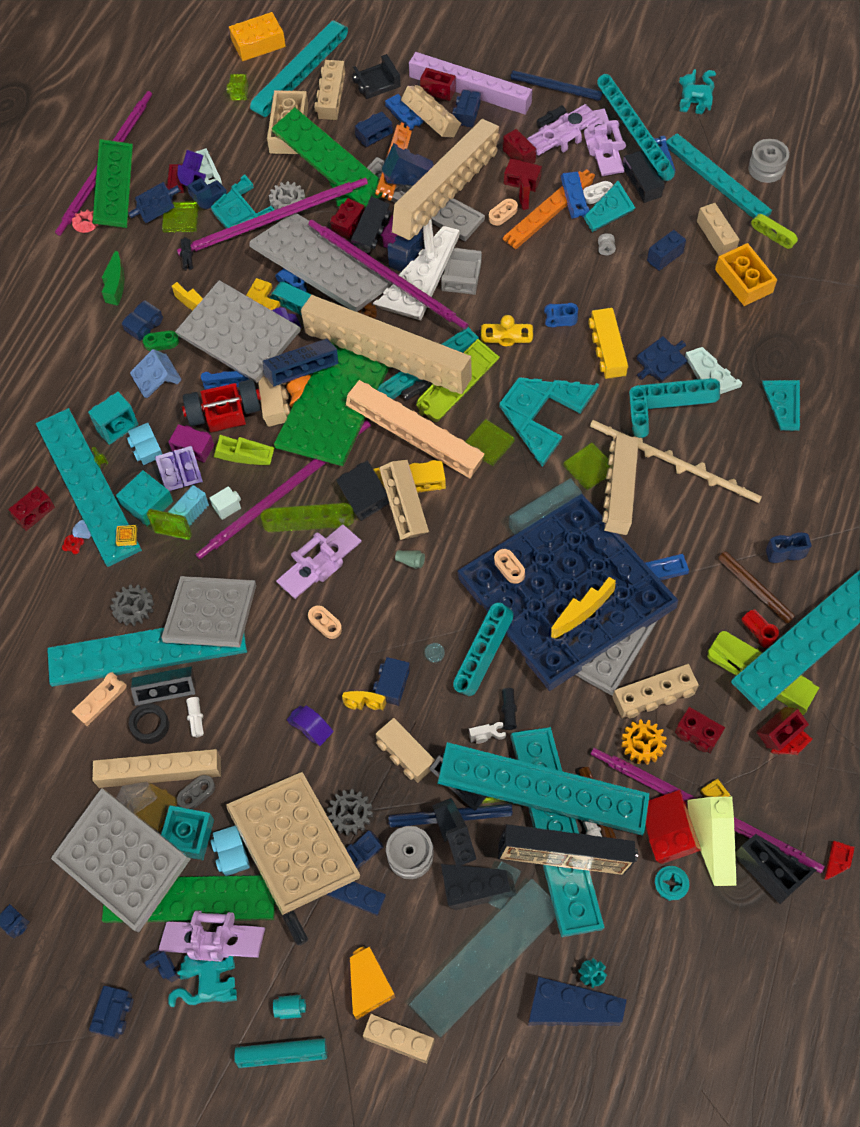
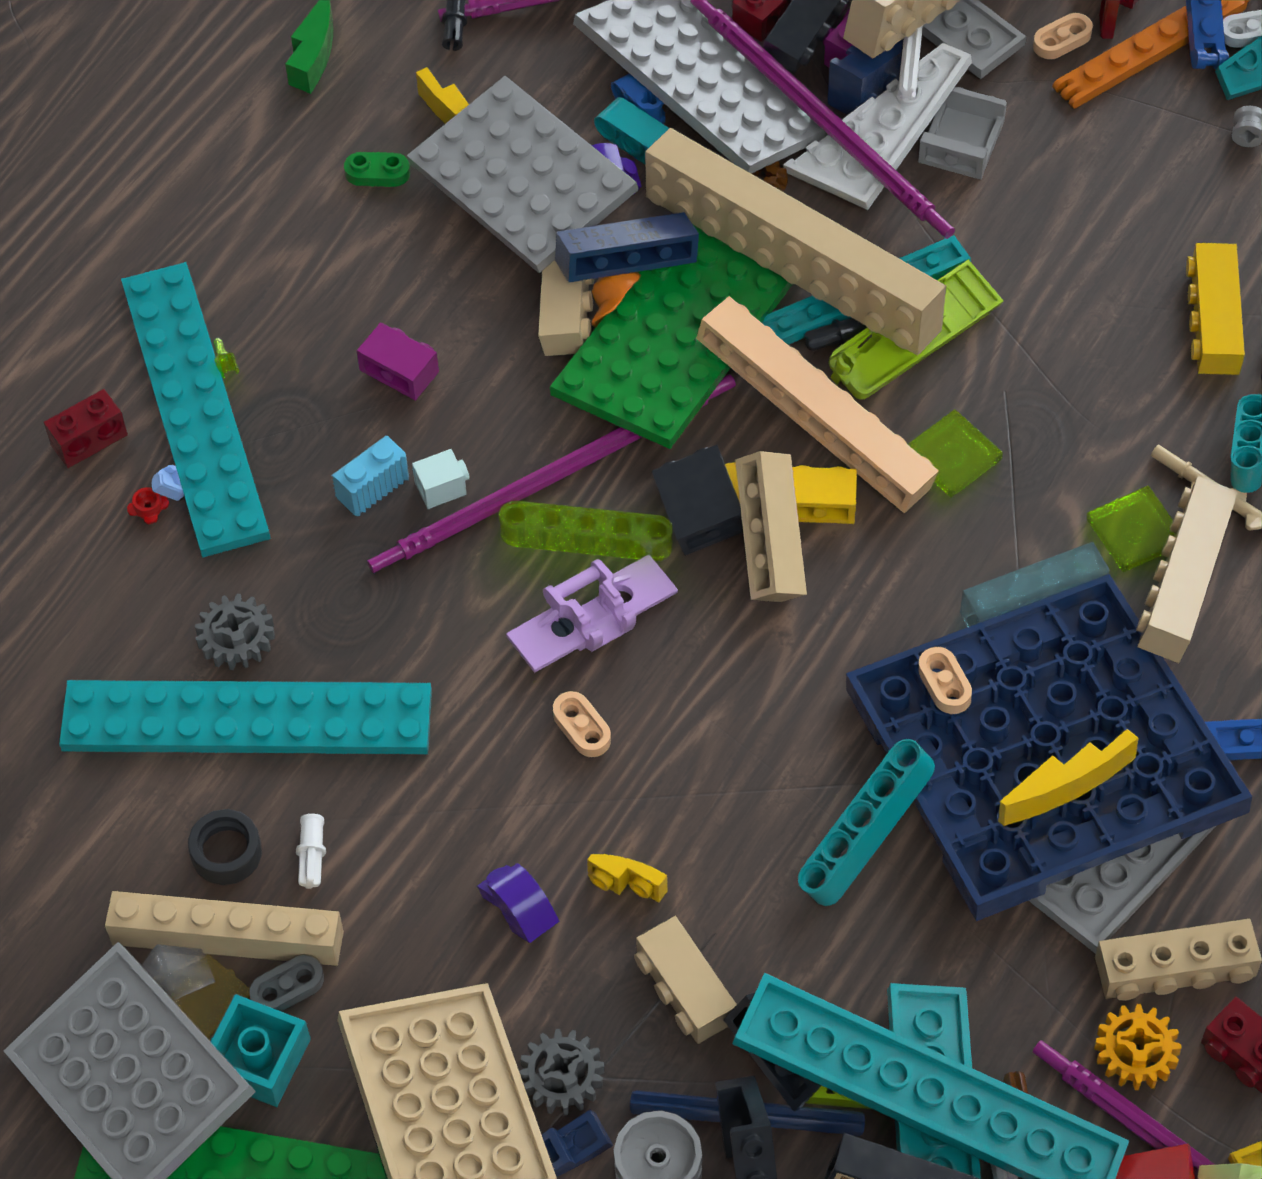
camera: 10 degrees right, 5 degrees down
(99, 699) = (143, 788): light nougat plate -> none
(113, 418) = (264, 292): teal brick -> none
(126, 535) = (248, 505): yellow tile -> none
(142, 320) = (350, 126): dark blue brick -> none
(144, 494) = (294, 445): teal brick -> none
(145, 443) = (313, 349): medium azure brick -> none
(153, 372) = (353, 222): medium blue bracket -> none
(163, 685) = (264, 783): black brick -> none
(169, 524) = (330, 498): clear neon green tile -> none
(178, 468) = (365, 403): slope -> none
(209, 611) = (373, 666): light grey plate -> none
(221, 379) = (481, 259): blue plate -> none
(222, 405) = (467, 302): brick -> none
(230, 851) = (330, 1099): medium azure brick -> none
(243, 451) = (490, 392): lime slope -> none
(259, 293) = (576, 110): yellow plate -> none
(392, 680) = (687, 850): dark blue brick -> none
(412, 558) = (766, 638): sand green cone -> none
(434, 652) = (775, 815): clear light blue plate -> none
(483, 733) = (837, 975): white plate -> none
(507, 332) = (1025, 257): yellow piece -> none
(509, 709) = (894, 941): black pin -> none
(527, 399) = (1040, 386): teal wing -> none
(562, 314) = (1138, 244): blue piece -> none

